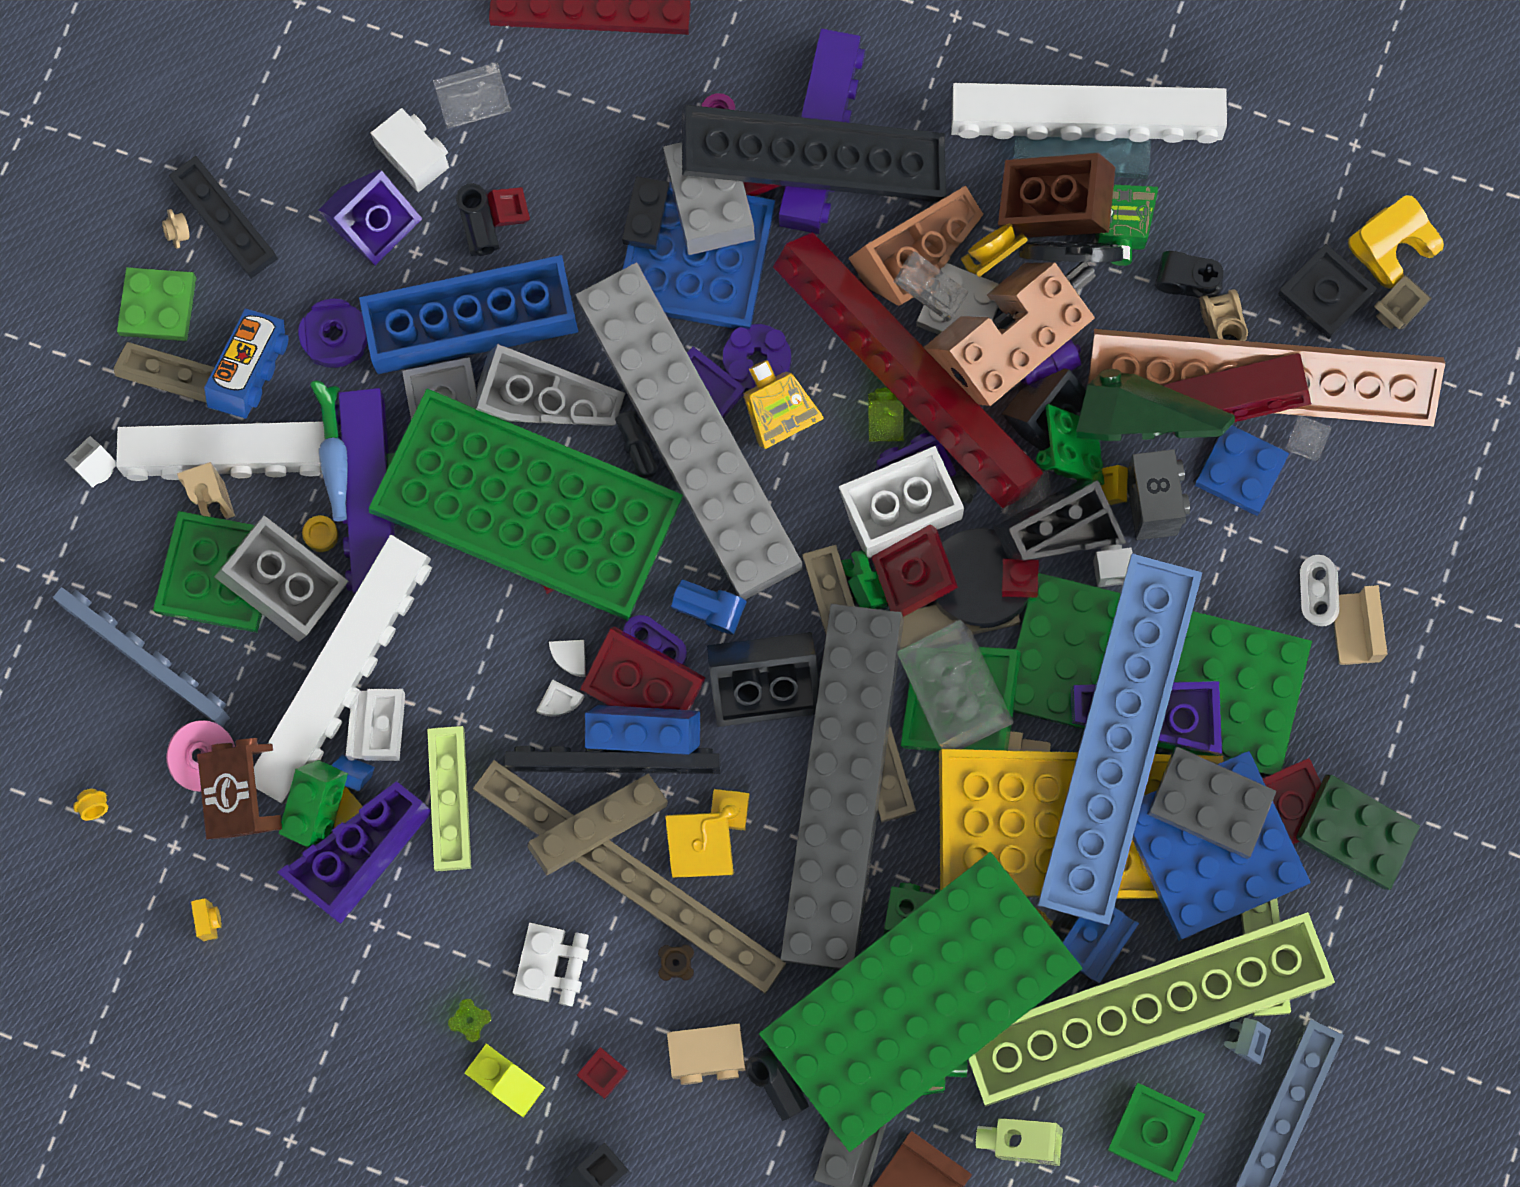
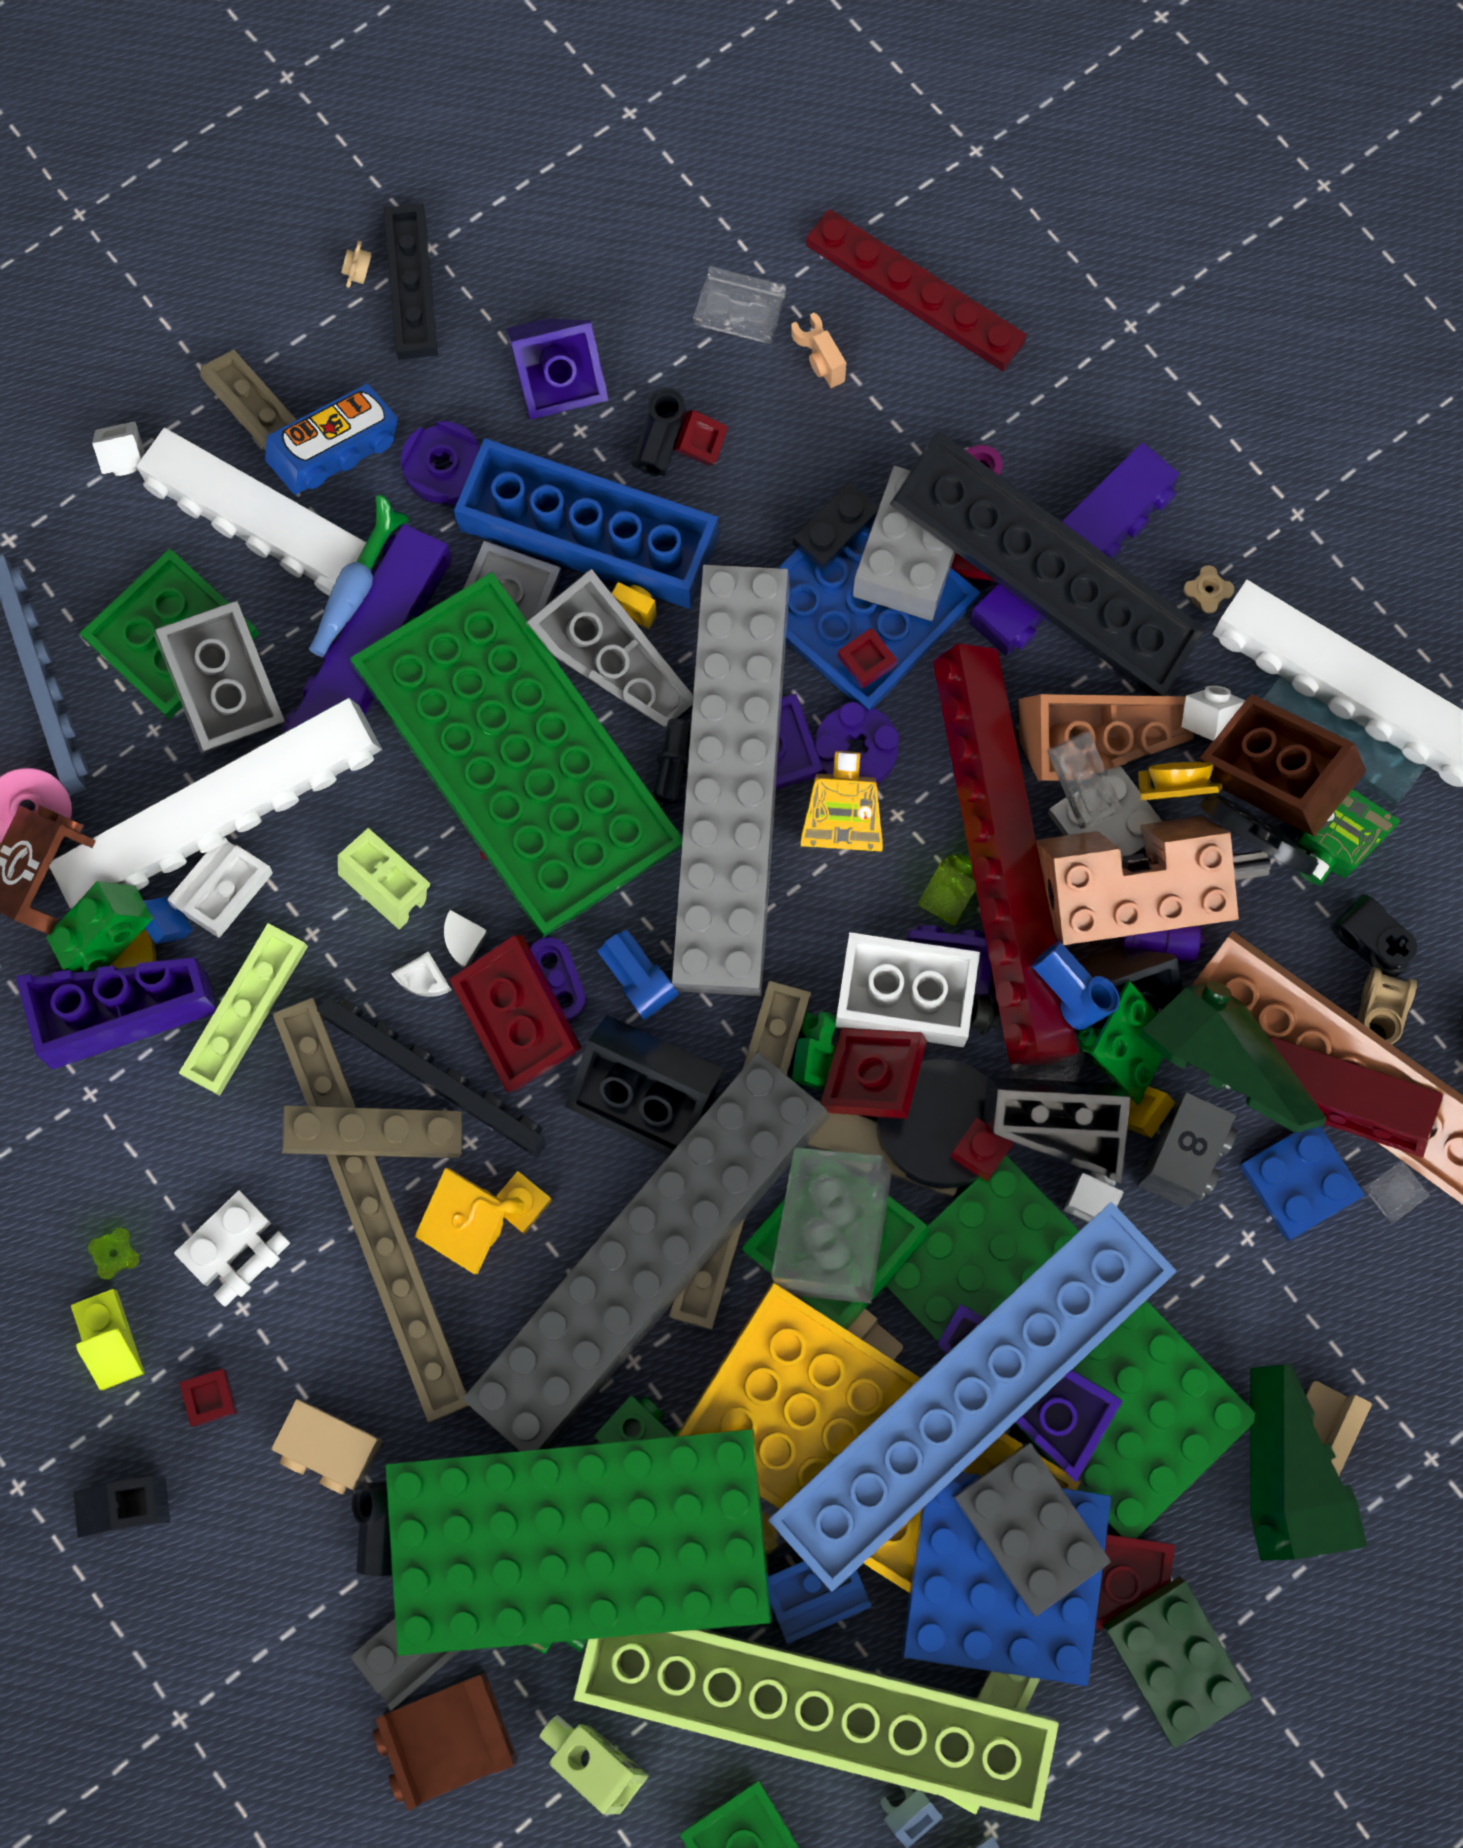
camera: 30 degrees right, 0 degrees up
(156, 304) = (289, 330): bright green plate -> none
(206, 487) = (212, 541): tan hinge -> none
(320, 533) = (295, 658): yellow tile -> none
(410, 149) = (640, 322): white brick -> none
(487, 648) = (382, 877): none -> yellowish green hinge
(540, 349) = (637, 603): none -> yellow plate
(558, 96) = (825, 355): none -> light nougat plate
(642, 729) = (480, 1062): blue brick -> none
(668, 955) = (348, 1333): dark brown plate -> none
(727, 291) = (867, 658): none -> dark red plate
(932, 113) = (1200, 597): none -> tan plate
(984, 188) = (1210, 711): none -> white plate
(1024, 433) = (1082, 997): none -> blue piece
(1319, 591) = (1311, 1369): white plate -> none
(1362, 669) = (1294, 1489): none -> dark green wedge

